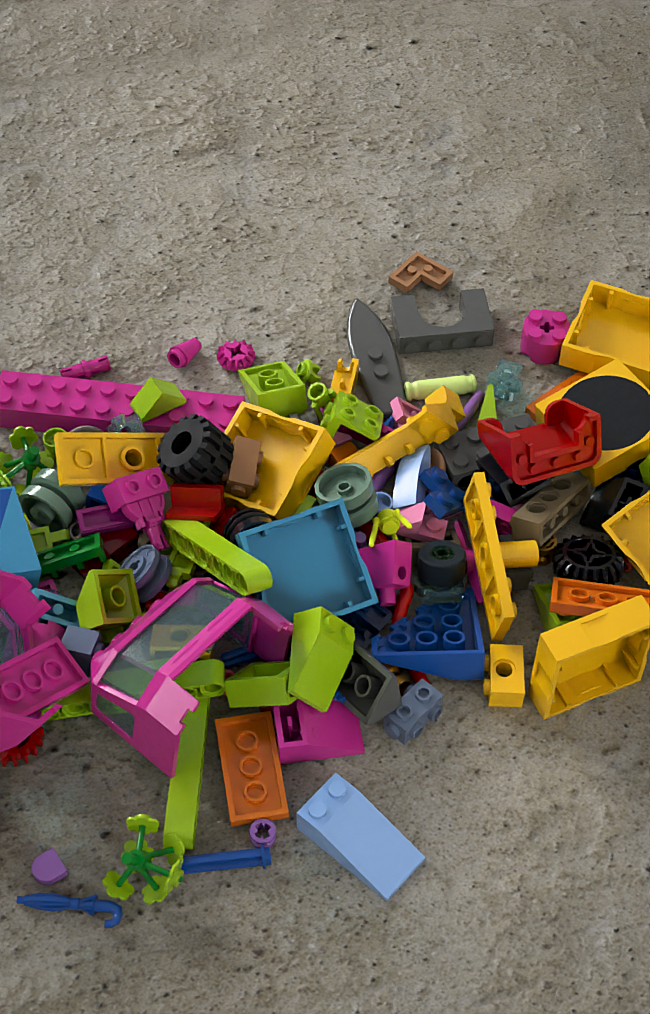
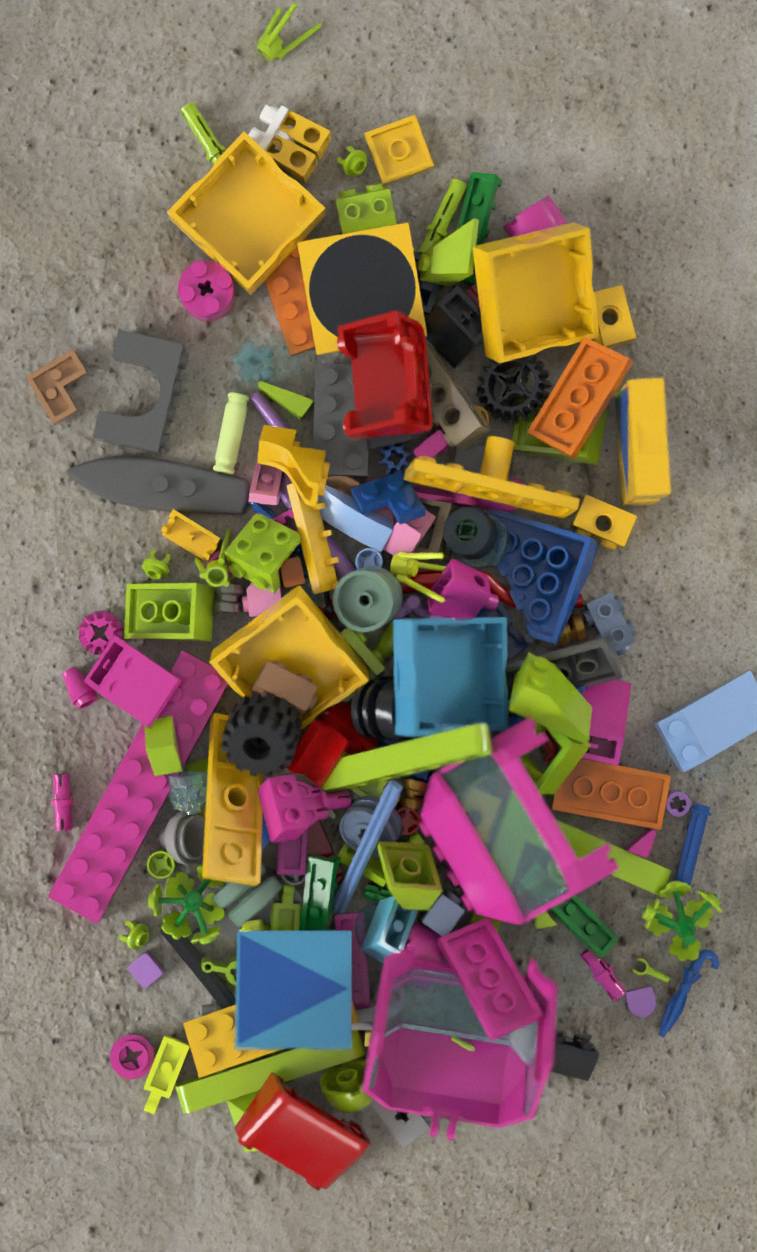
camera: 70 degrees left, 35 degrees up
(66, 822) = (604, 975): none -> dark pink pin
(83, 862) = (651, 971): none -> lime hand
(107, 745) = (543, 920): none -> lime slope
(111, 781) = (585, 926): none -> green hinge
(135, 561) = (367, 846): none -> medium blue axle
(205, 370) = (132, 681): none -> dark pink slope
(211, 811) = (643, 843): none -> dark pink slope

